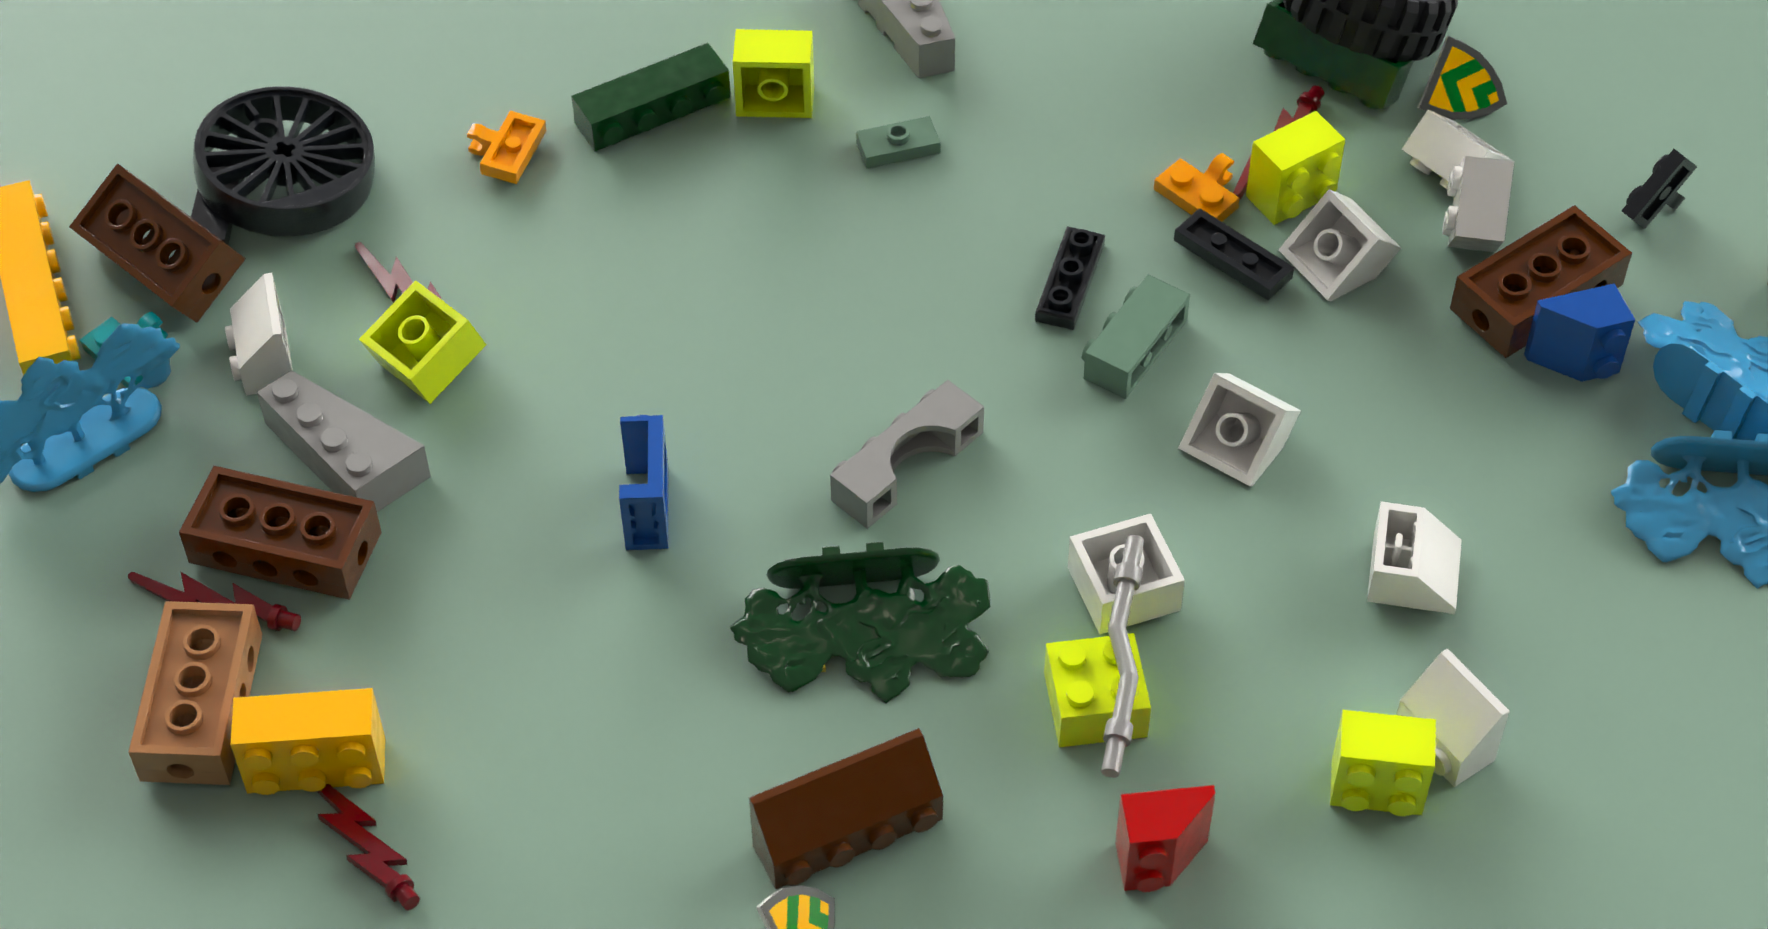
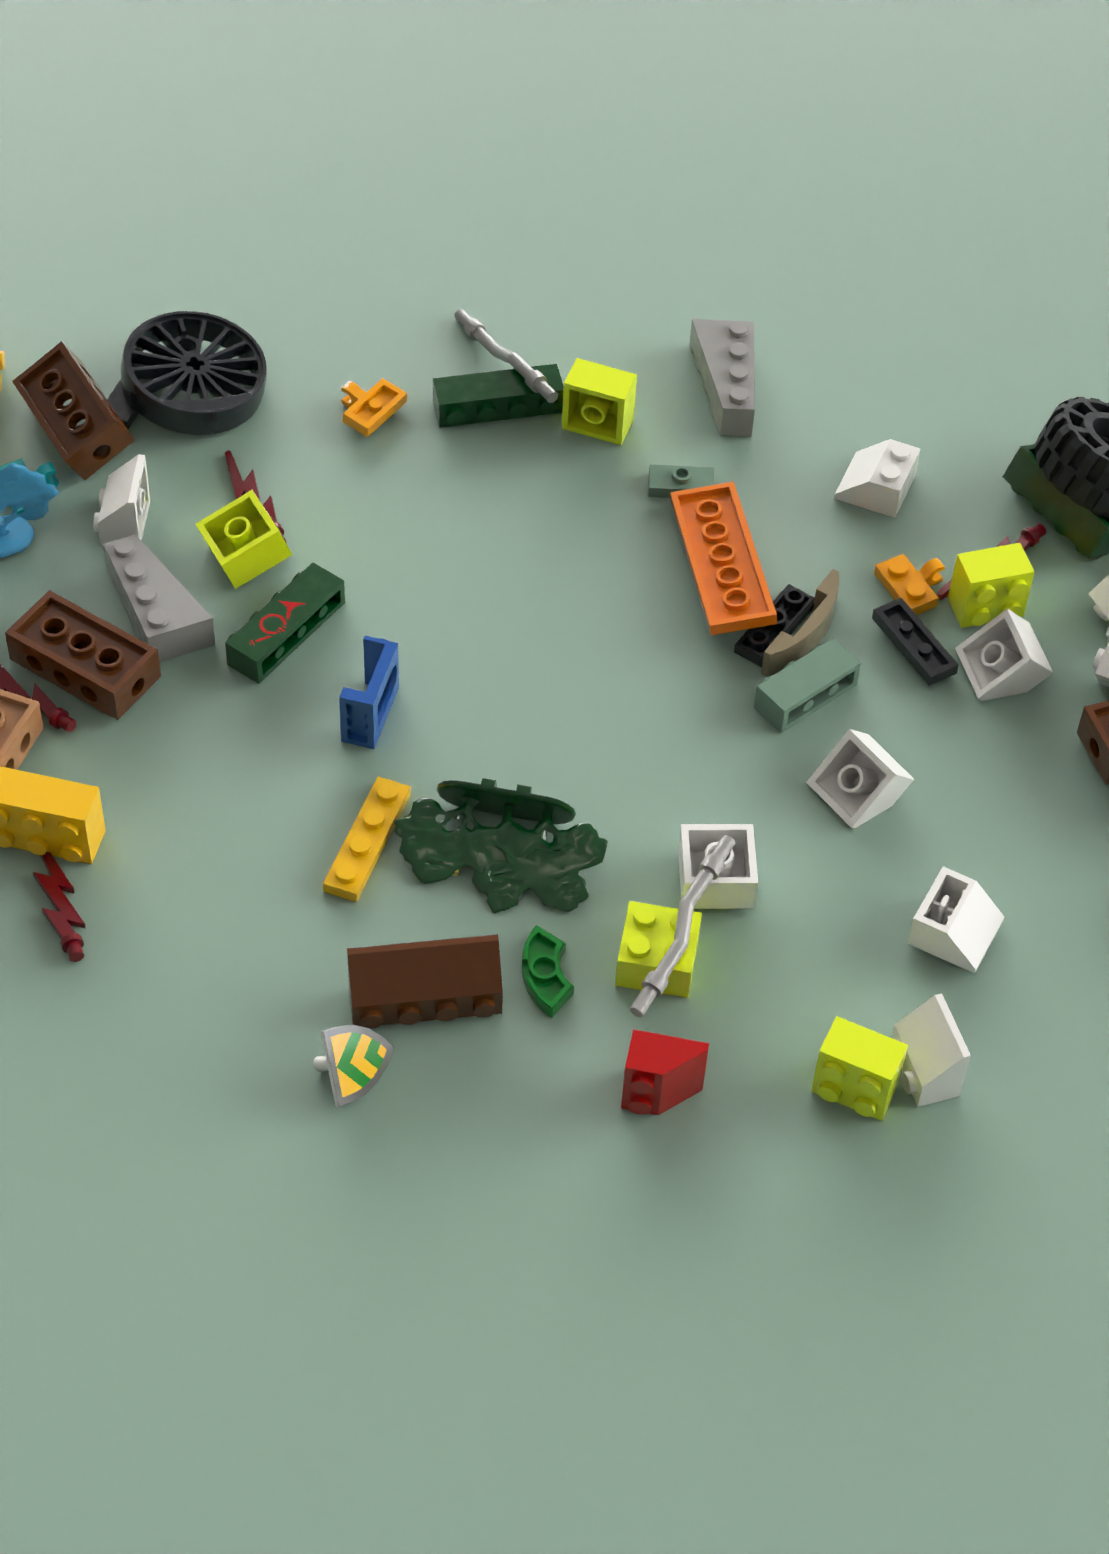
camera: 15 degrees right, 0 degrees up
(506, 428) = (285, 622): none -> dark green brick
(691, 66) = (533, 378): none -> light grey bar
(703, 658) = (366, 839): none -> yellow plate
(941, 422) = (622, 710): light grey arch -> none
(971, 756) = (542, 971): none -> green tile
(985, 217) = (723, 558): none -> orange plate
(1101, 299) = (789, 648): none -> dark tan slope
(1118, 78) = (880, 477): none -> white slope

